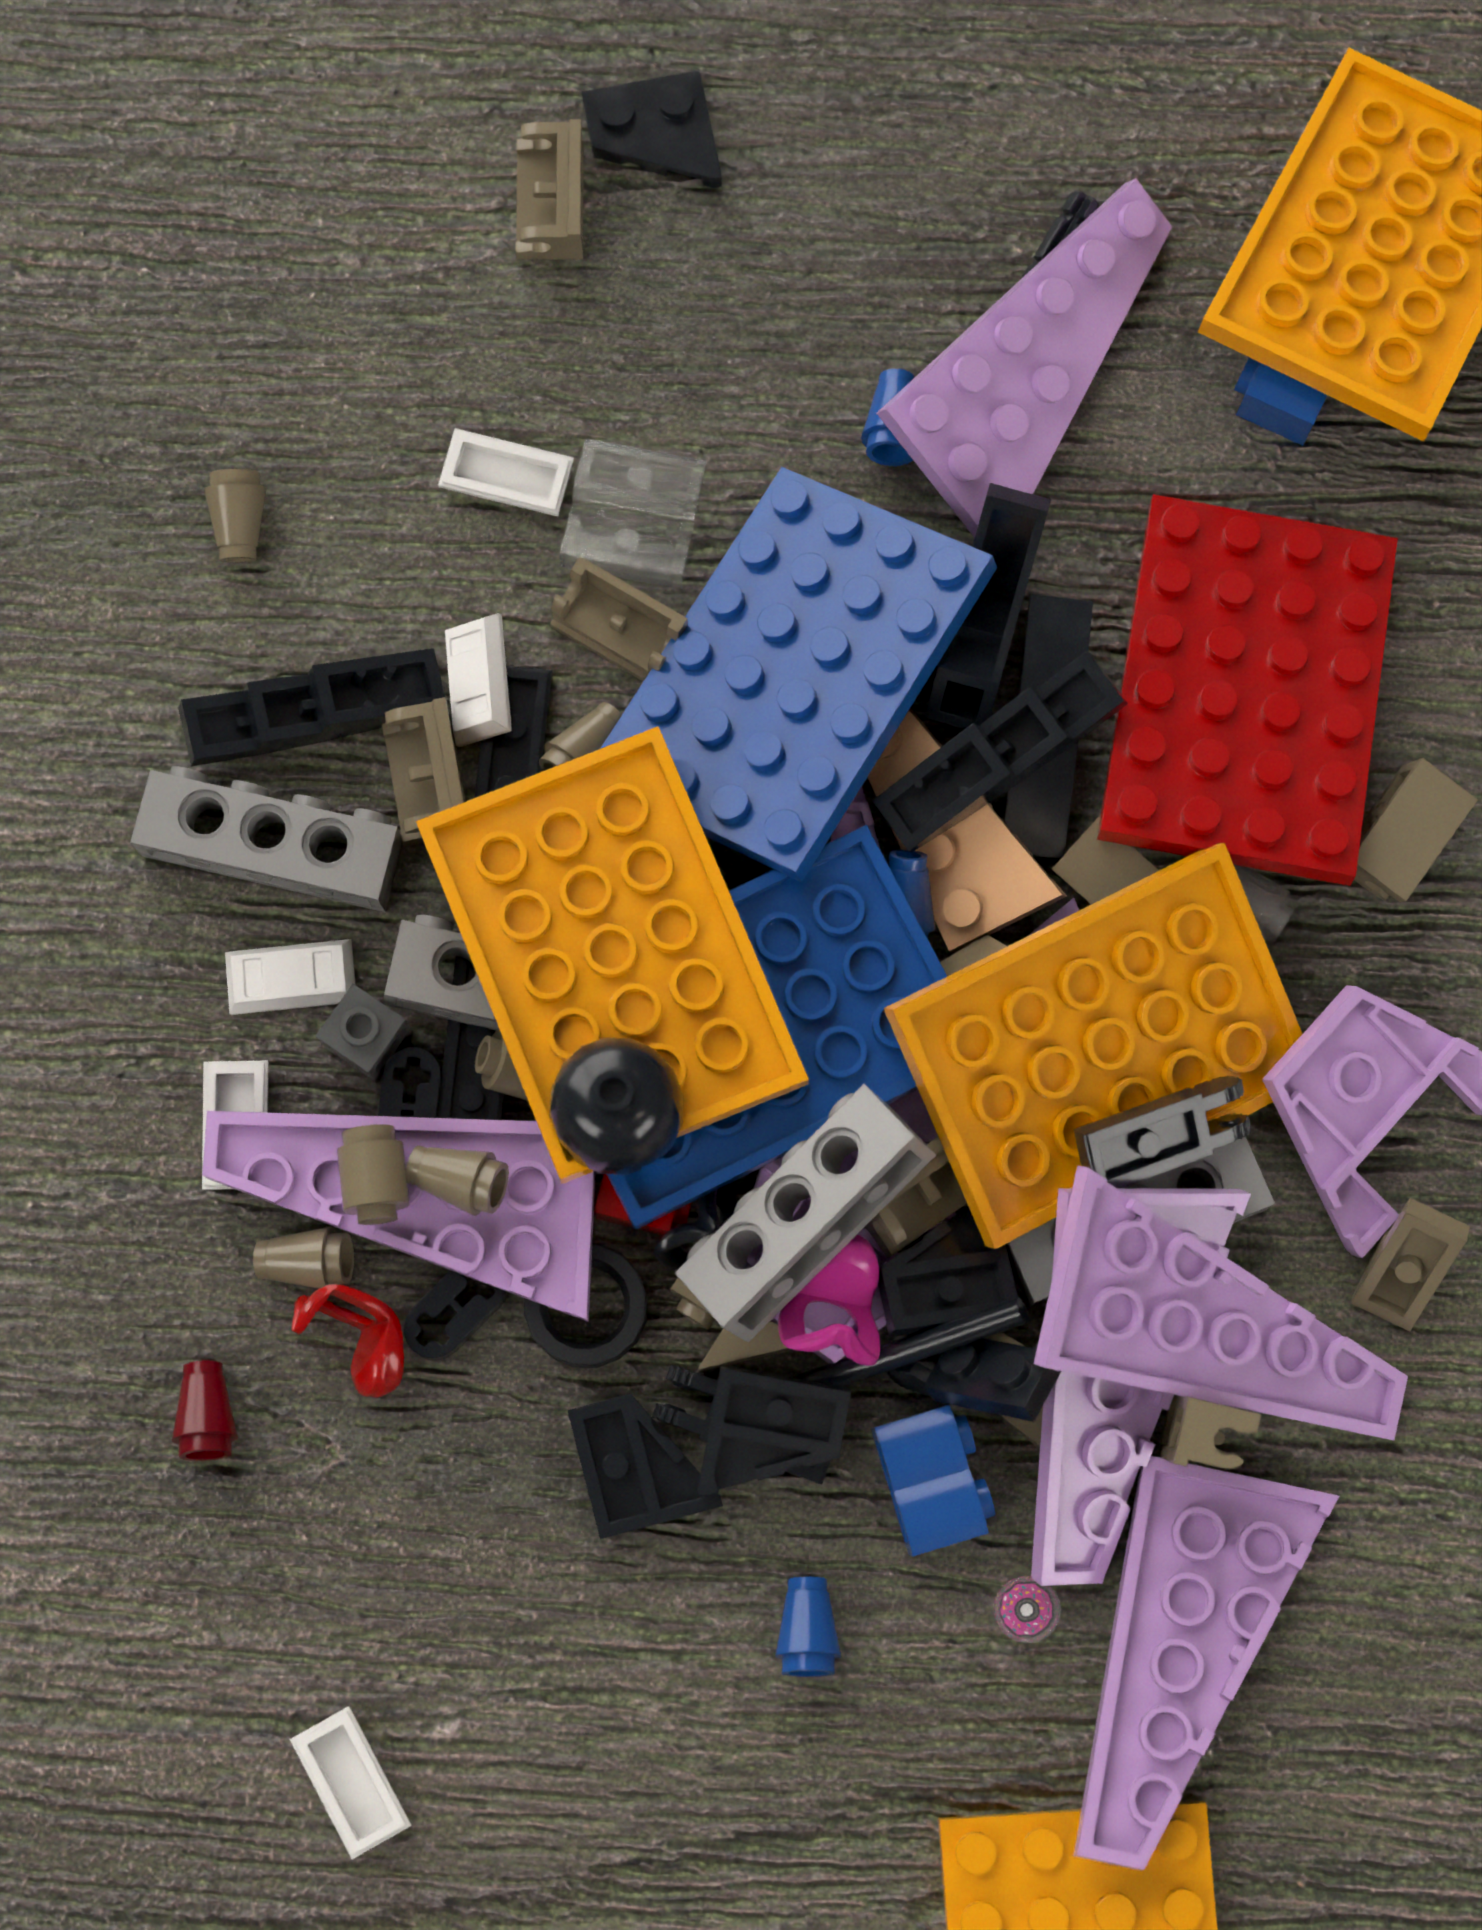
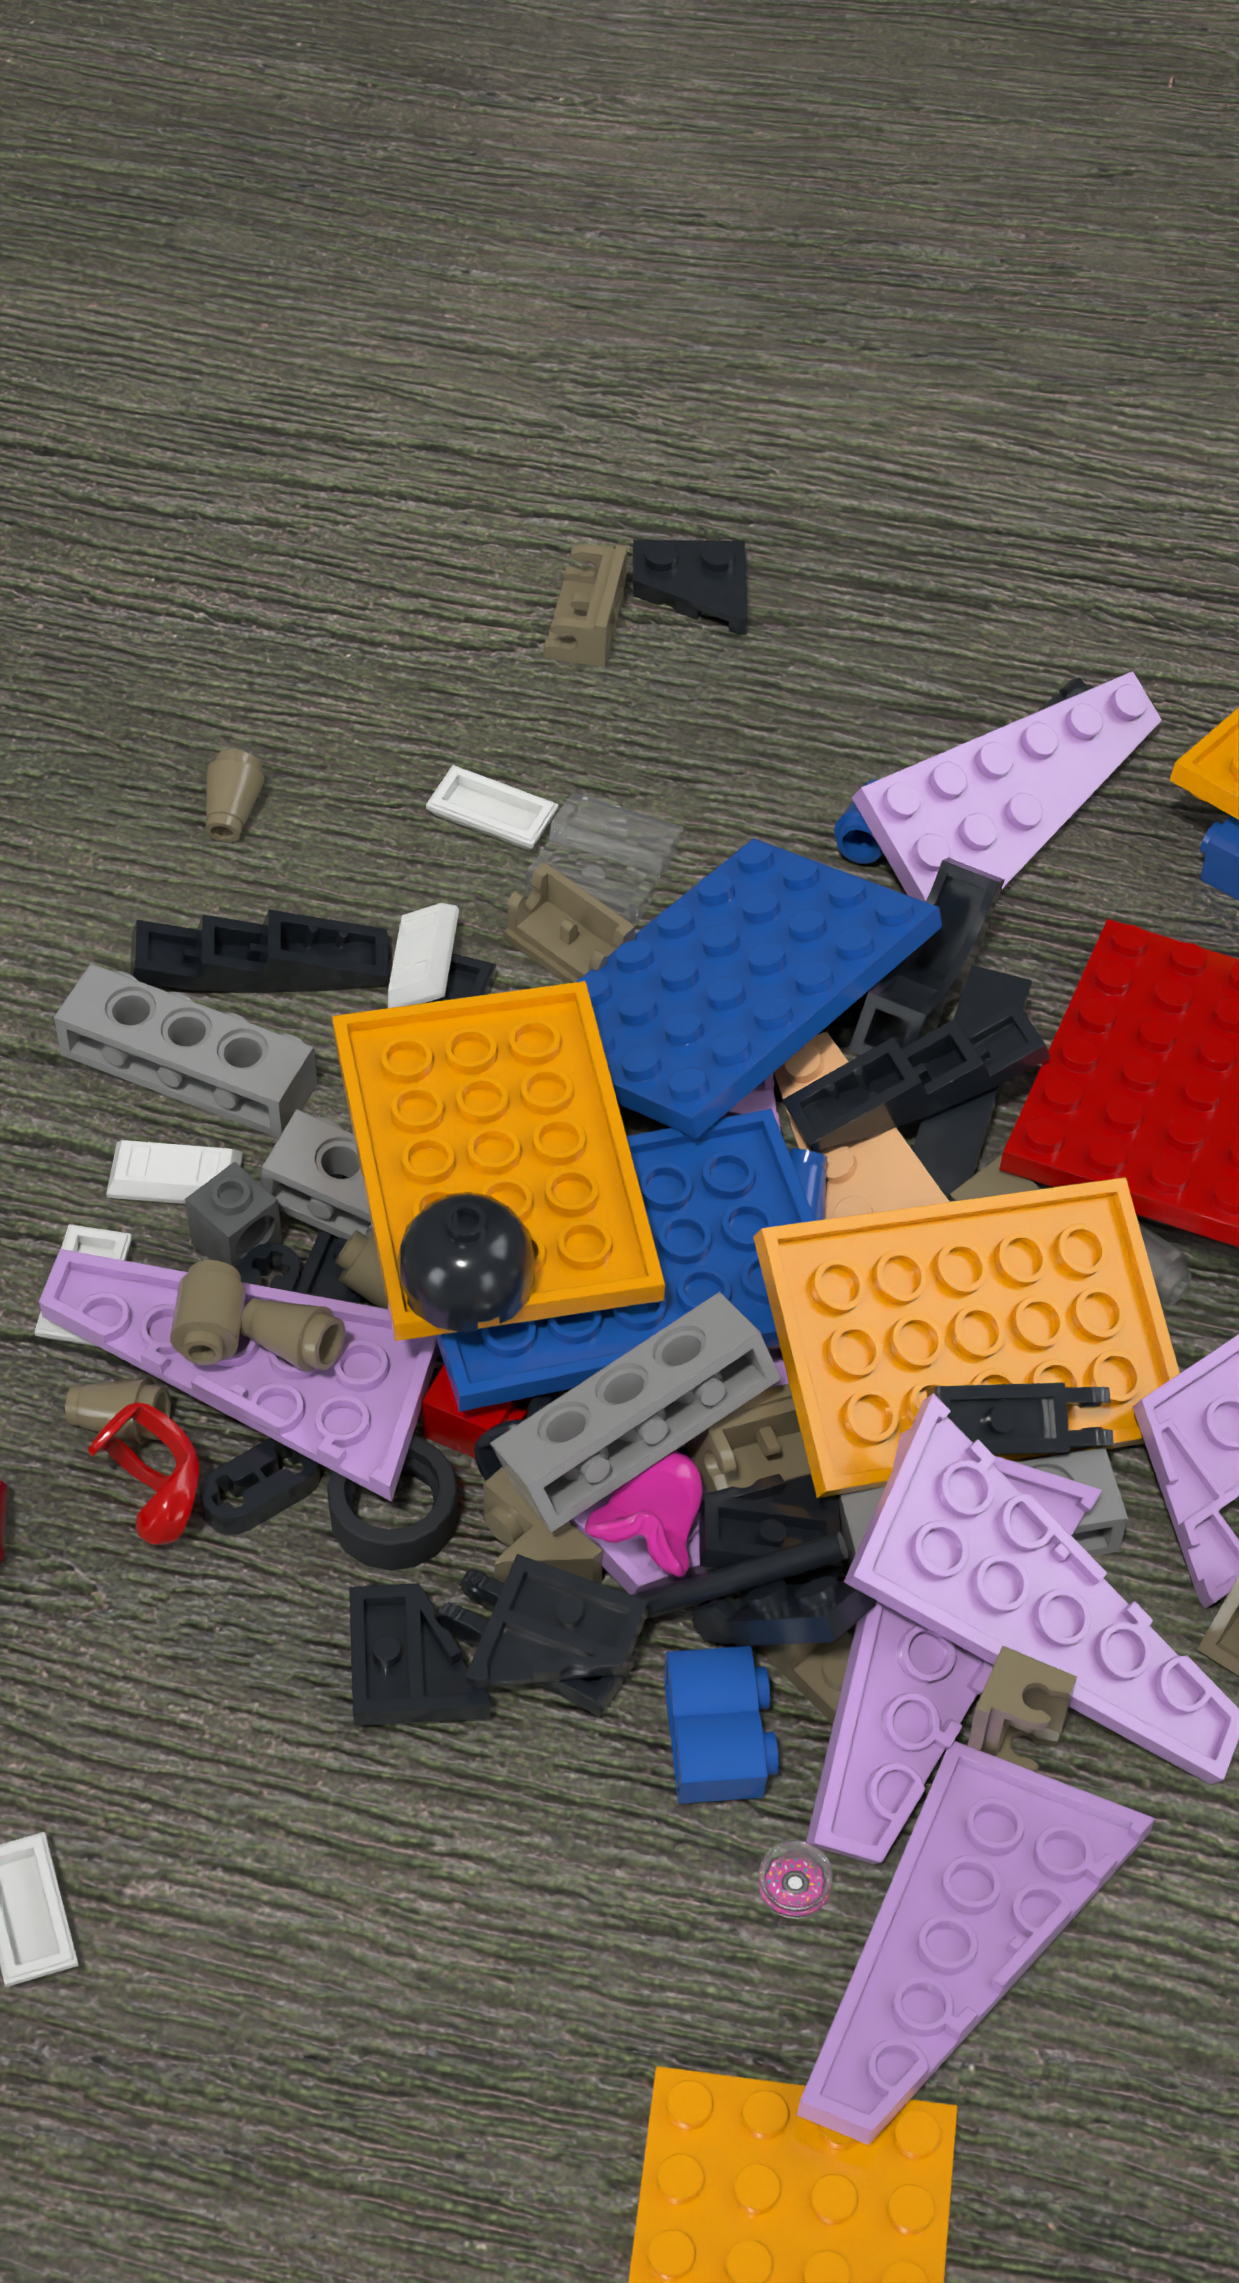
camera: 10 degrees right, 25 degrees down
(422, 764) = (338, 997): dark tan hinge -> none
(807, 1630) = (552, 1850): blue cone -> none

